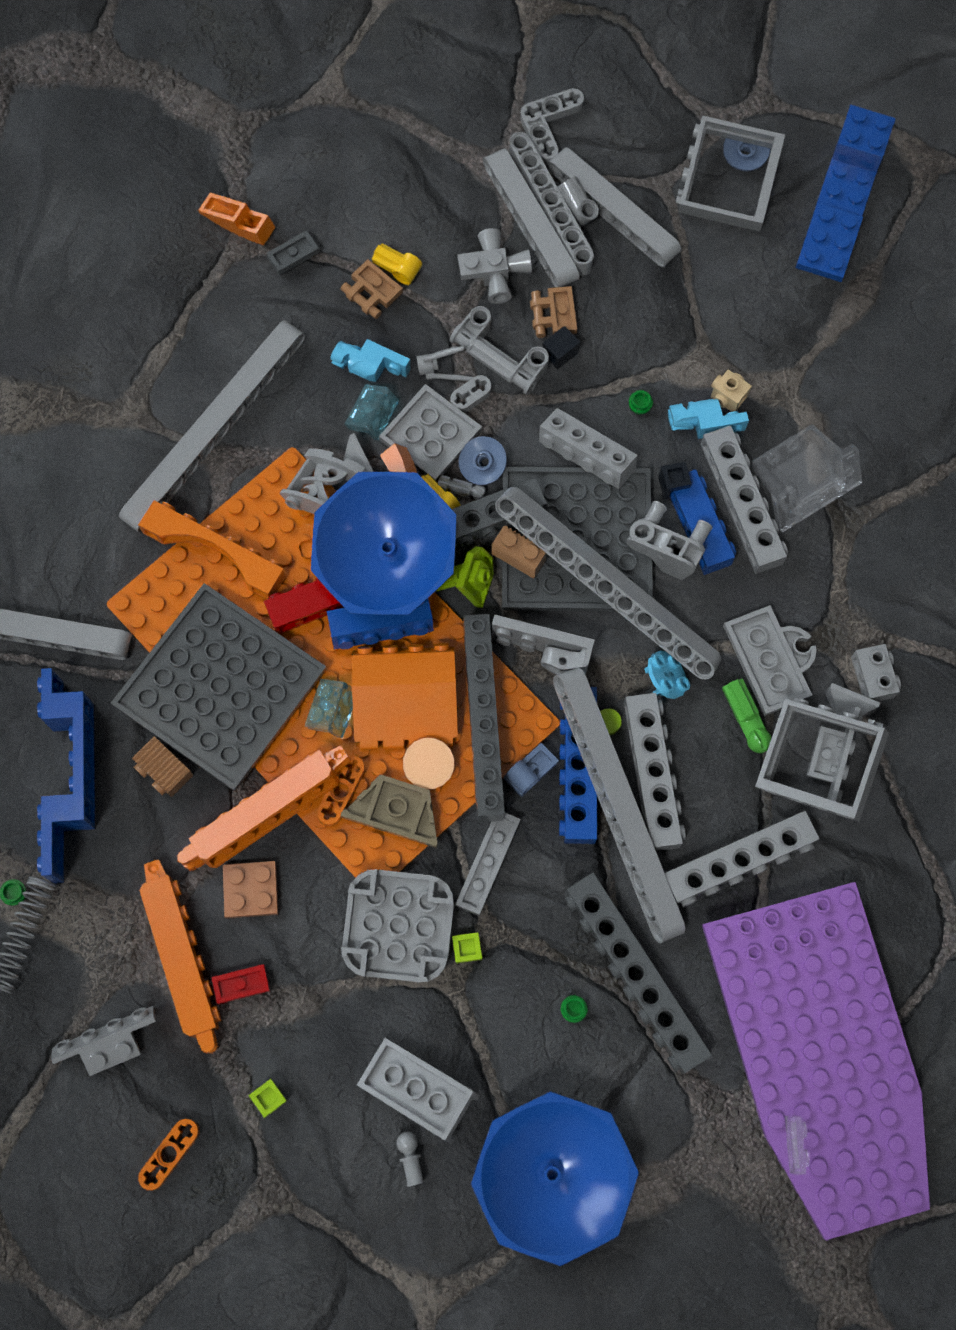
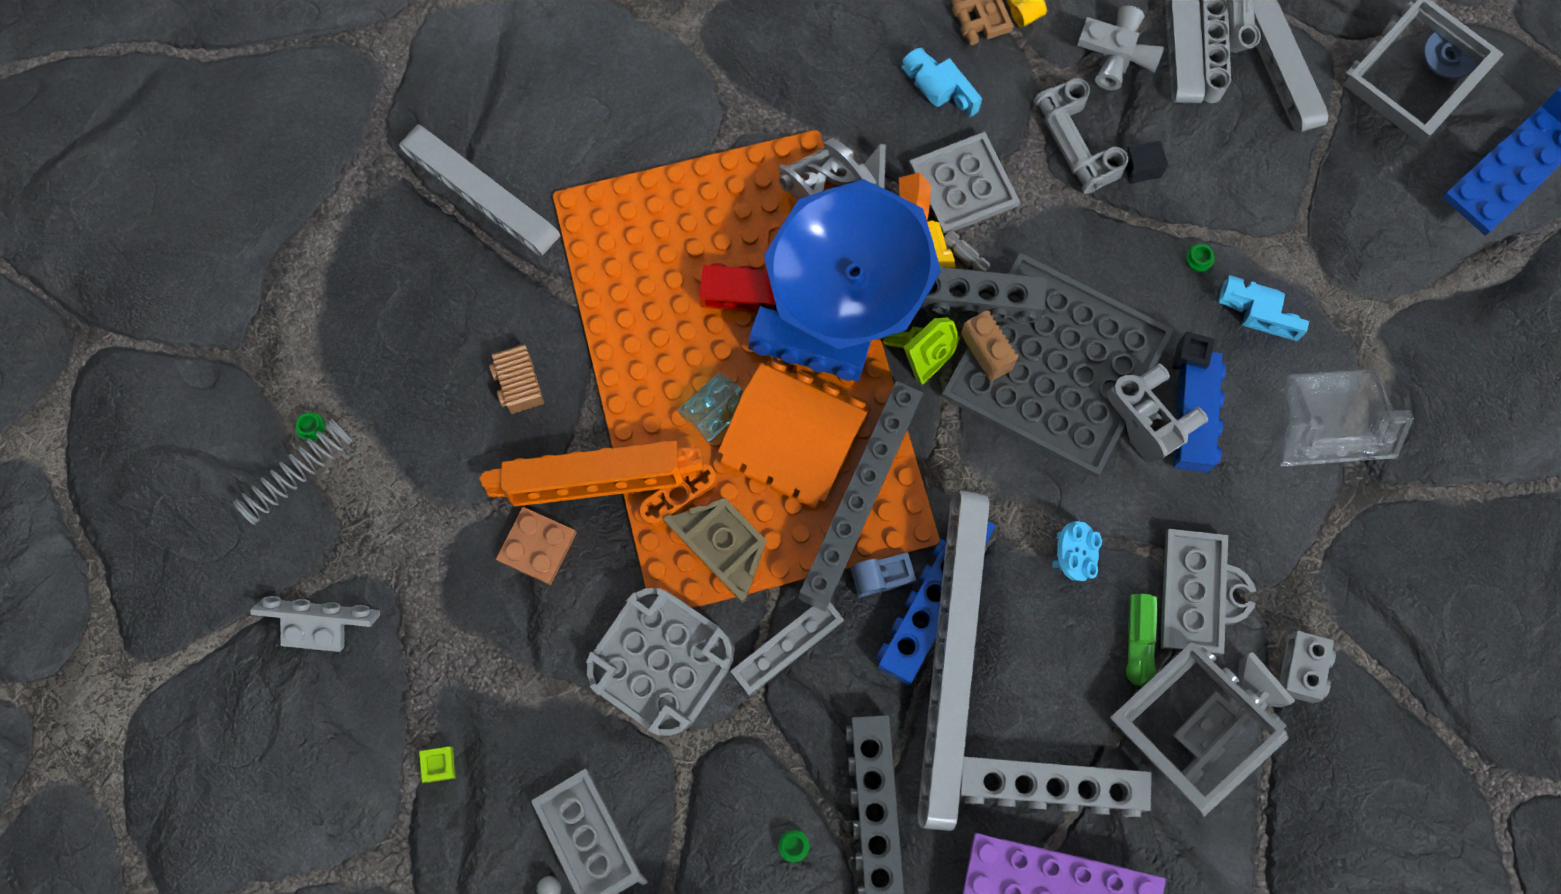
camera: 30 degrees right, 0 degrees up
(74, 811) = (412, 379): blue bracket -> none
(157, 1155) = (288, 768): orange beam -> none
(168, 526) = (653, 148): orange arch -> none
(178, 956) = (429, 576): orange hinge -> none
(214, 422) = (749, 71): light grey beam -> none
(219, 686) = (615, 329): dark grey plate -> none
(240, 984) = (474, 635): red plate -> none
(372, 410) = (917, 132): clear light blue bracket -> none
(428, 363) = (1000, 112): light grey plant -> none
(428, 763) = (780, 512): light nougat tile -> none
(467, 390) = (1026, 164): light grey beam -> none
(467, 948) = (718, 722): lime plate -> none
(472, 456) = (1001, 224): sand blue dish -> none
(557, 646) = (976, 460): light grey plate -> none
(561, 311) = (1166, 124): medium nougat plate -> none
(587, 448) = (1118, 276): light grey brick -> none
(612, 720) = (993, 567): lime tile -> none
(613, 594) = (1076, 433): light grey beam -> none
(635, 709) = (1026, 569): light grey brick -> none
(730, 390) = (1303, 291): tan brick -> none
(760, 556) = (1244, 479): light grey brick -> none

